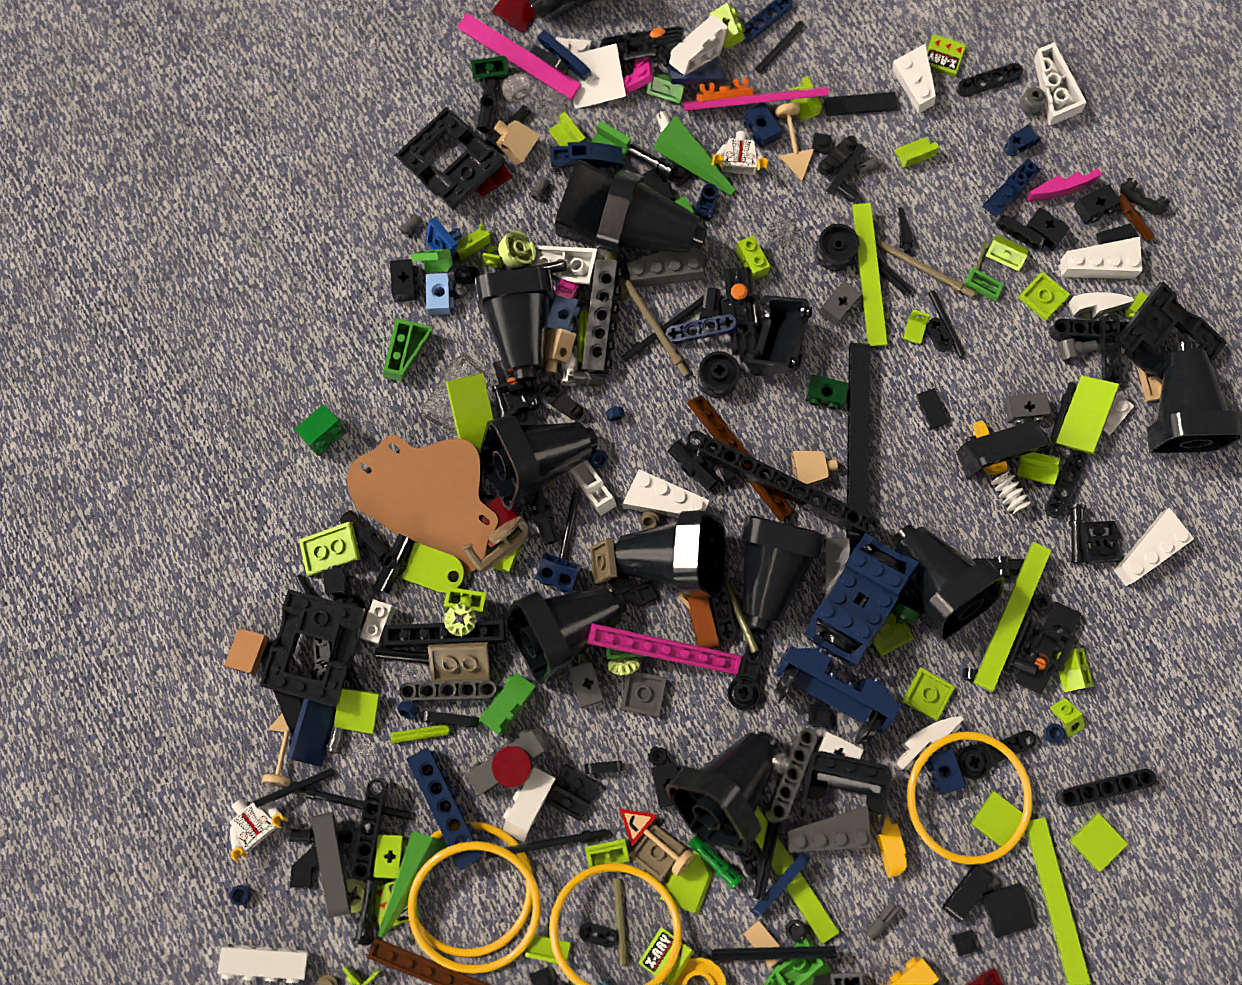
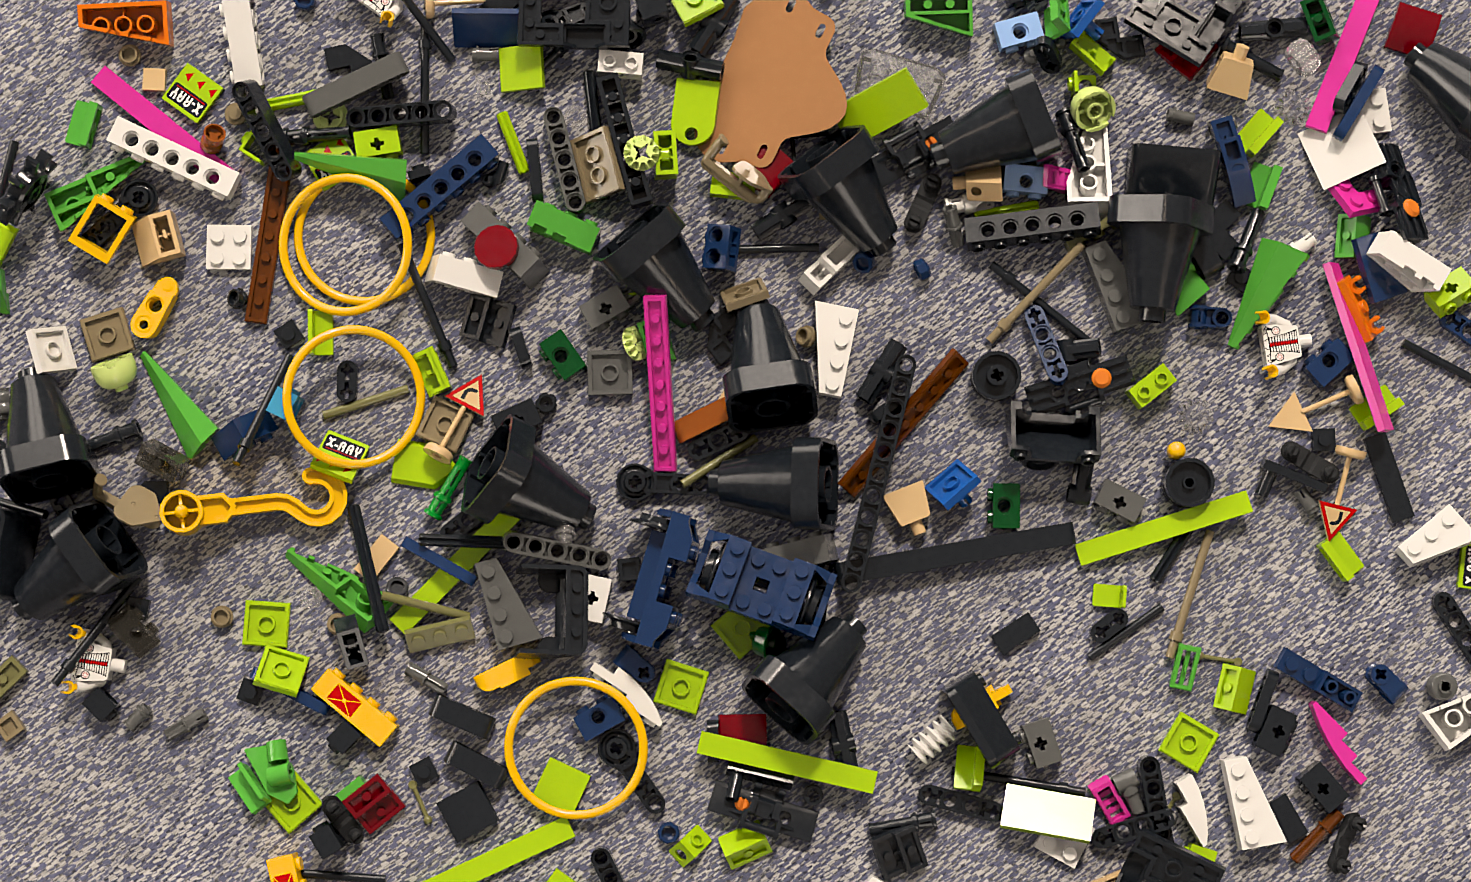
camera: 75 degrees right, 10 degrees up
(328, 935) = (287, 101): none -> lime axle
(342, 965) = (257, 125): none -> black beam
(407, 710) = (534, 122): dark blue tile -> none
(426, 824) = (419, 173): none -> black plate
(447, 755) = (497, 177): none -> black arm
(472, 218) = (1124, 47): none -> black tile
(628, 723) = (556, 343): none -> dark green brick
(802, 427) = (953, 485): none -> blue tile
(809, 250) = (1176, 450): none -> yellow cylinder
(817, 907) = (423, 605): none -> olive bar
(823, 331) = (1080, 488): none -> black piece
(844, 900) = (439, 634): none -> olive plate
(882, 147) = (1334, 515): none -> tan piece
(901, 732) = (631, 662): none -> dark blue piece
(905, 237) = (1223, 563): black piece -> none
(922, 896) = (462, 716): none -> black beam
(973, 647) = (744, 727): none -> dark red slope
(975, 956) = (413, 785): none -> olive hinge
(1070, 369) = (1101, 784): none -> dark pink slope

